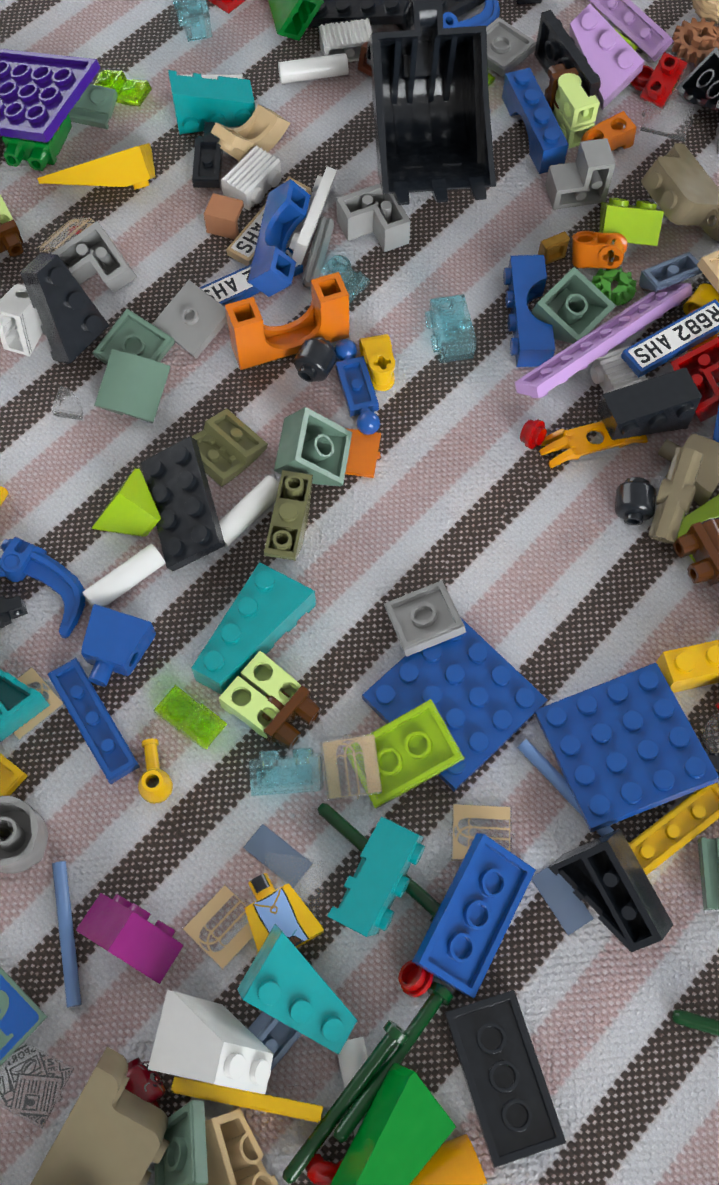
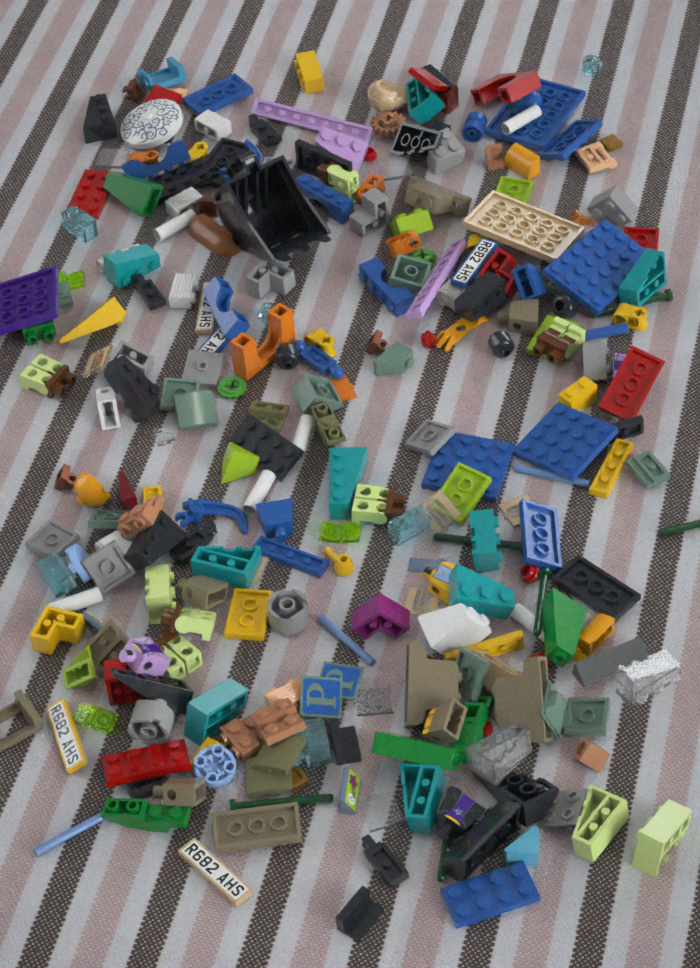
camera: 25 degrees left, 20 degrees down
(211, 360) = (227, 383): none -> bright green gear
(222, 216) = (182, 315): nougat panel -> none
(262, 129) = (170, 264): tan arch -> none
(301, 241) = (237, 299): white plate -> none
(318, 250) = (247, 310): light grey axle -> none
(350, 111) = (213, 236): none -> dark orange brick
(394, 1035) = (534, 586): dark green bar -> none
(451, 328) = (350, 312): clear light blue brick -> none
(452, 399) = (376, 343): none -> copper tile
(461, 445) = (394, 360): none -> sand green slope
(554, 247) = (379, 251): pearl gold tile -> none
(562, 901) = (577, 517): sand blue sticker -> none
(616, 888) = (598, 493): black wedge -> none
(663, 80) = (382, 150): red hips -> none
(669, 272) = (449, 238): sand blue slope -> none
(675, 495) = (520, 330): dark tan piece -> none

